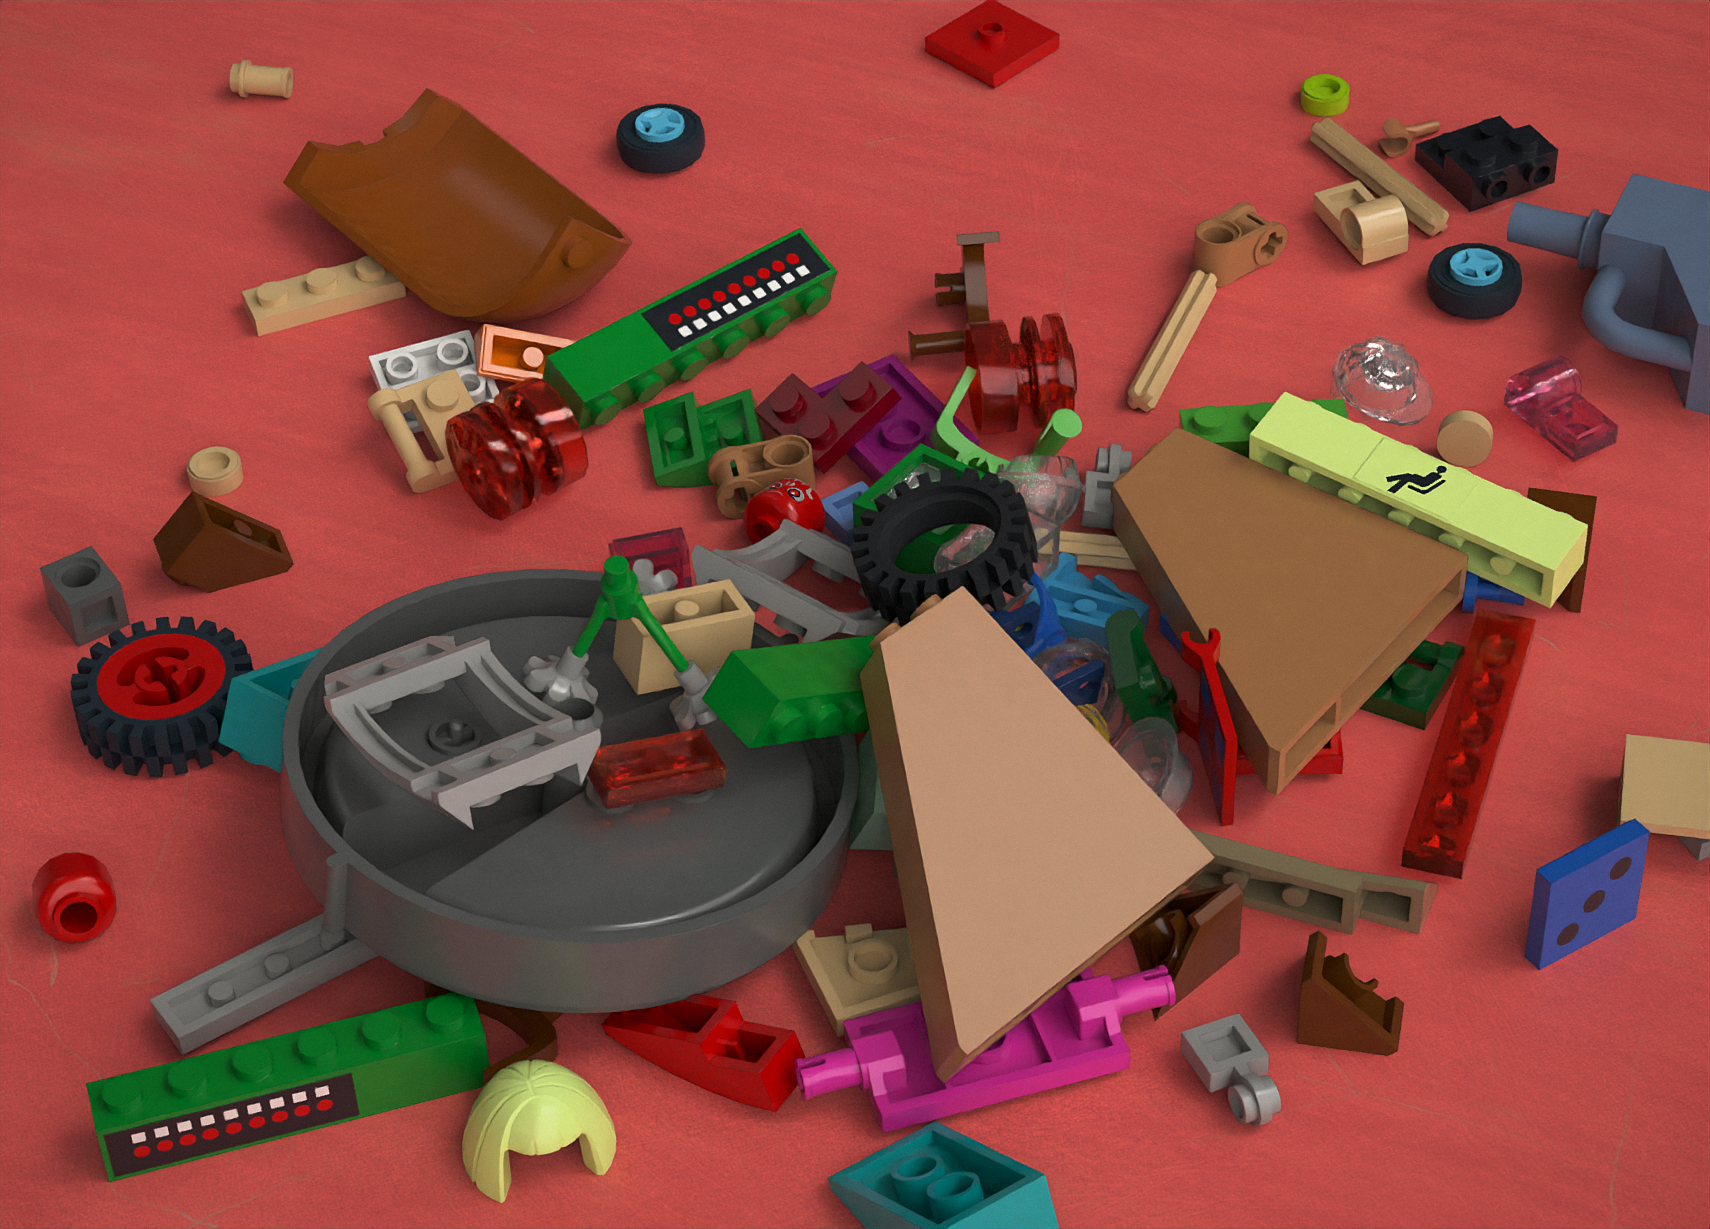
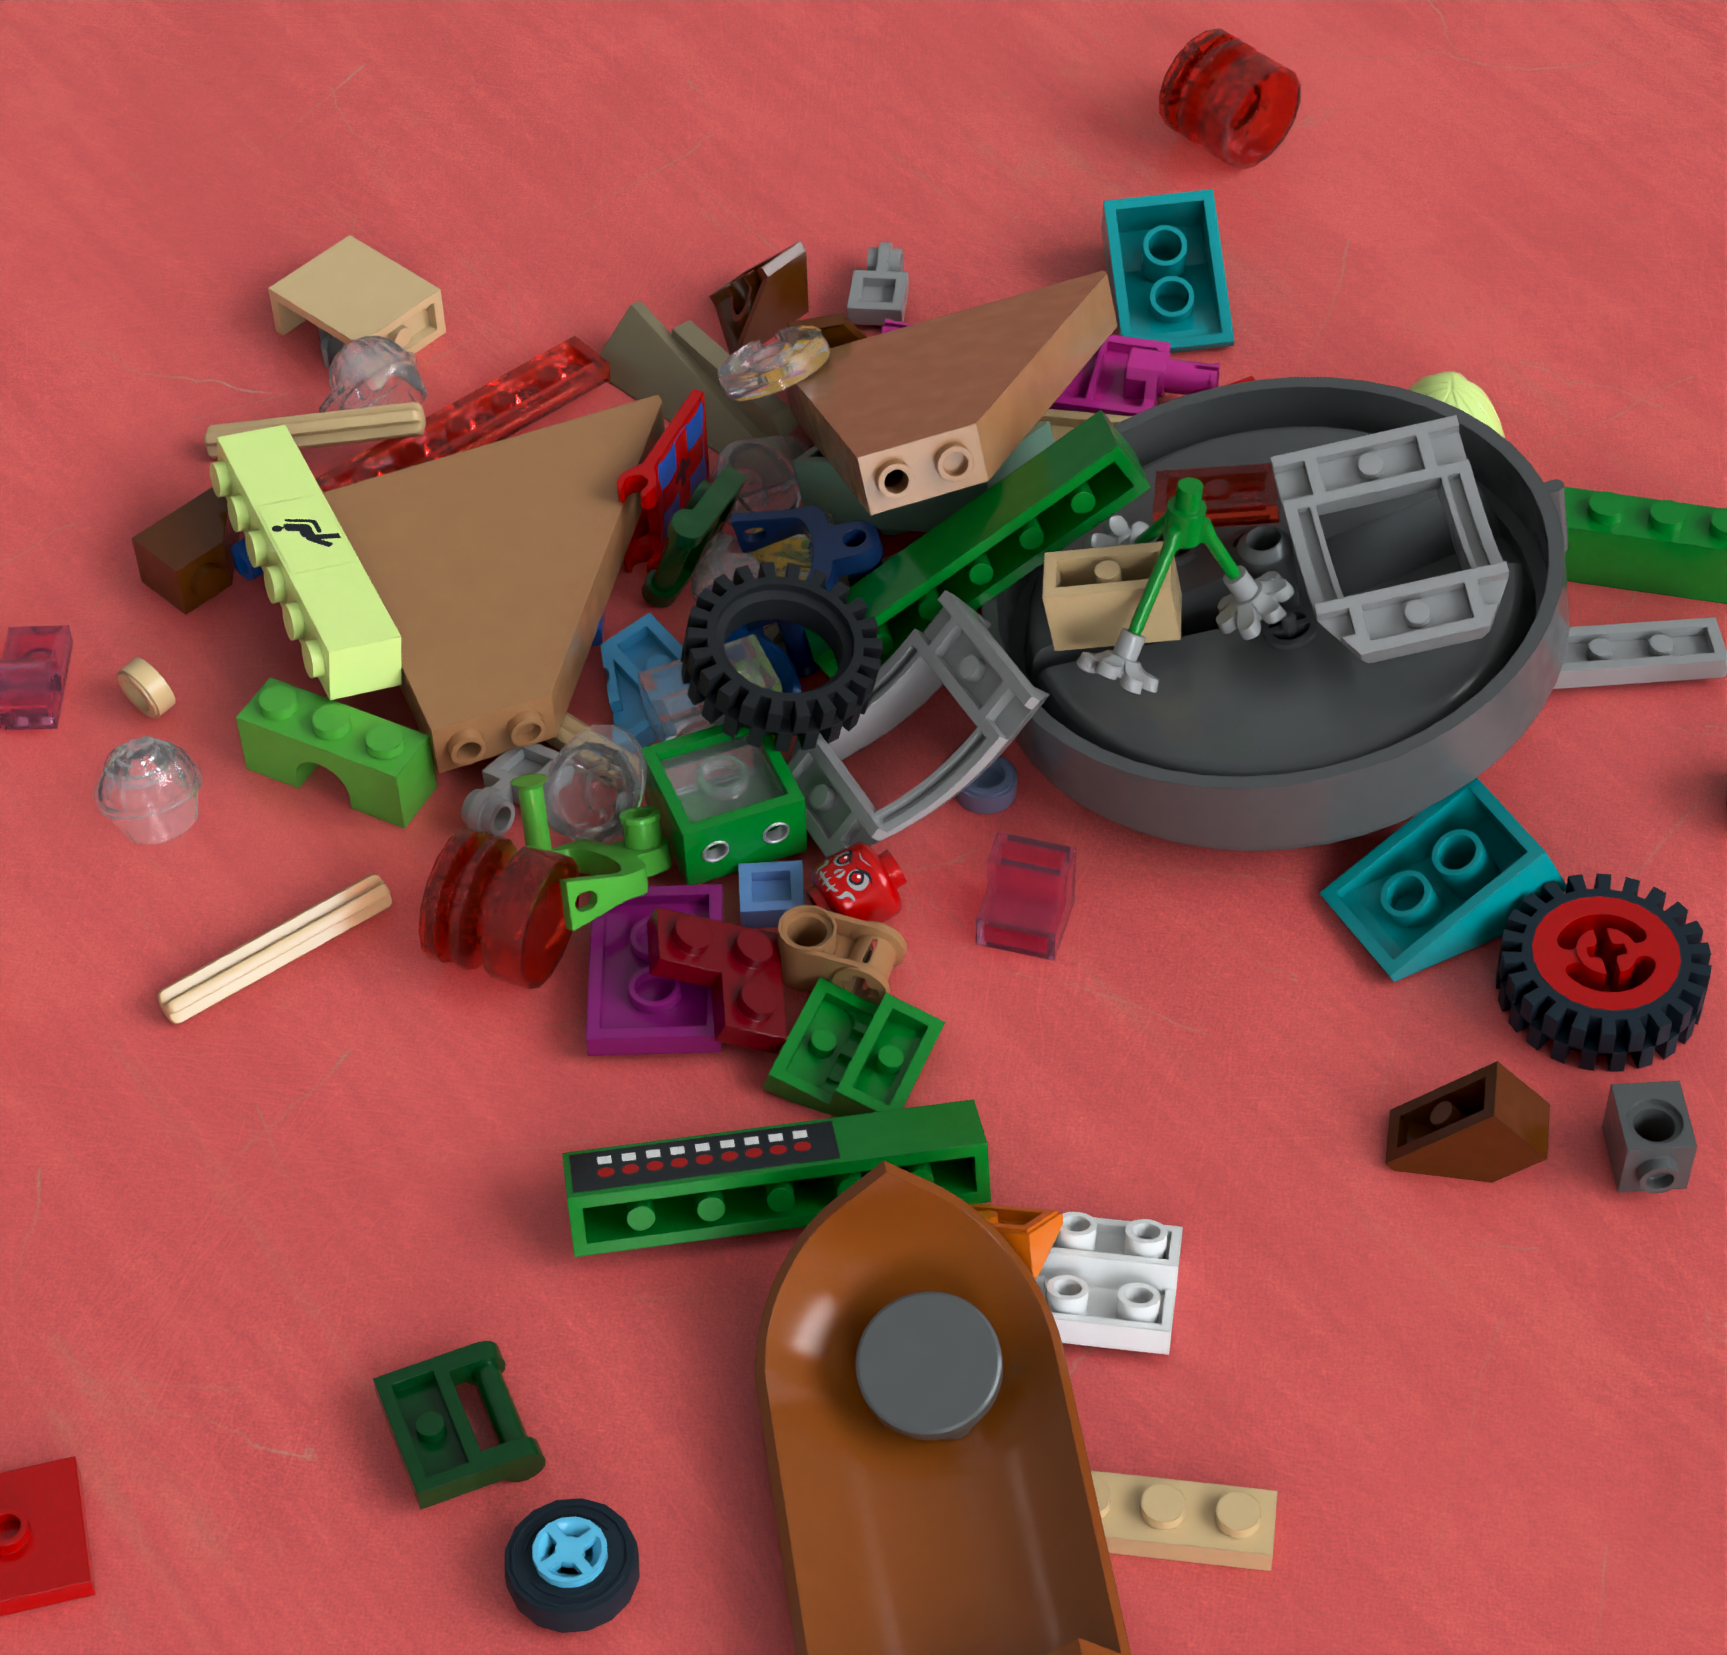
camera: 150 degrees left, 5 degrees up
(215, 471) = (1425, 1282): tan tile -> none
(433, 404) = (1130, 1184): tan plate -> none
(497, 266) = (929, 1366): none -> dark grey tile
(516, 448) = (1090, 1061): clear red wheel -> none
(791, 155) = (435, 1431): none -> dark green plate
(966, 288) = (419, 1103): reddish brown piece -> none
(1205, 827) = (768, 369): none -> clear tile
(1236, 243) = (97, 1022): medium nougat piece -> none
(1578, 722) = (373, 374): none -> clear piece
(1582, 671) = (334, 426): none -> tan axle
(1586, 893) = (526, 251): blue tile -> none

